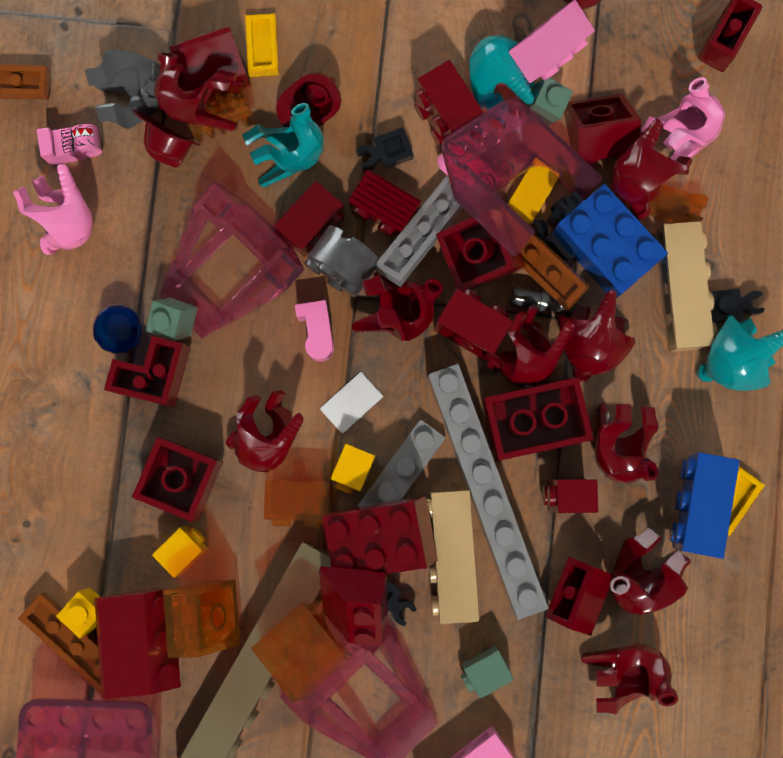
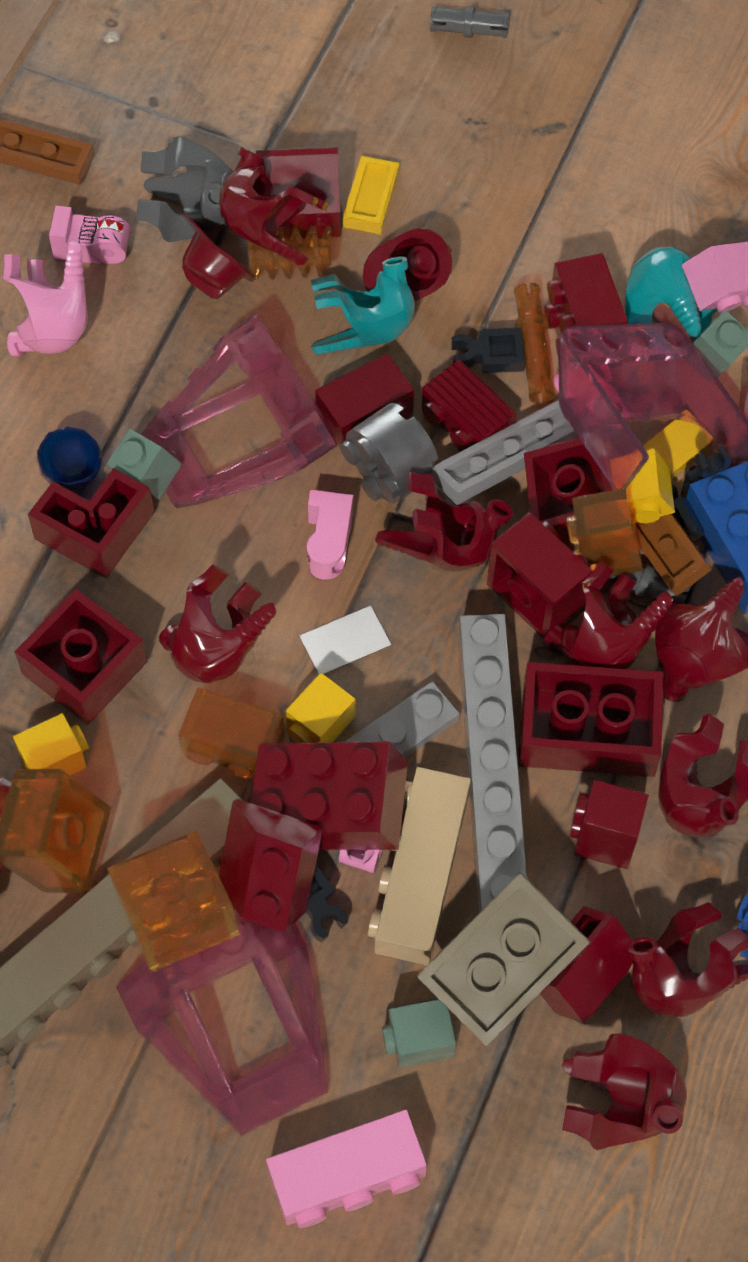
camera: 15 degrees right, 20 degrees down
(410, 122) = (534, 326): none -> clear orange pin
(512, 287) = (606, 531): none -> clear orange brick
(531, 621) = (503, 958): none -> dark tan plate
(539, 243) = (651, 490): none -> yellow brick

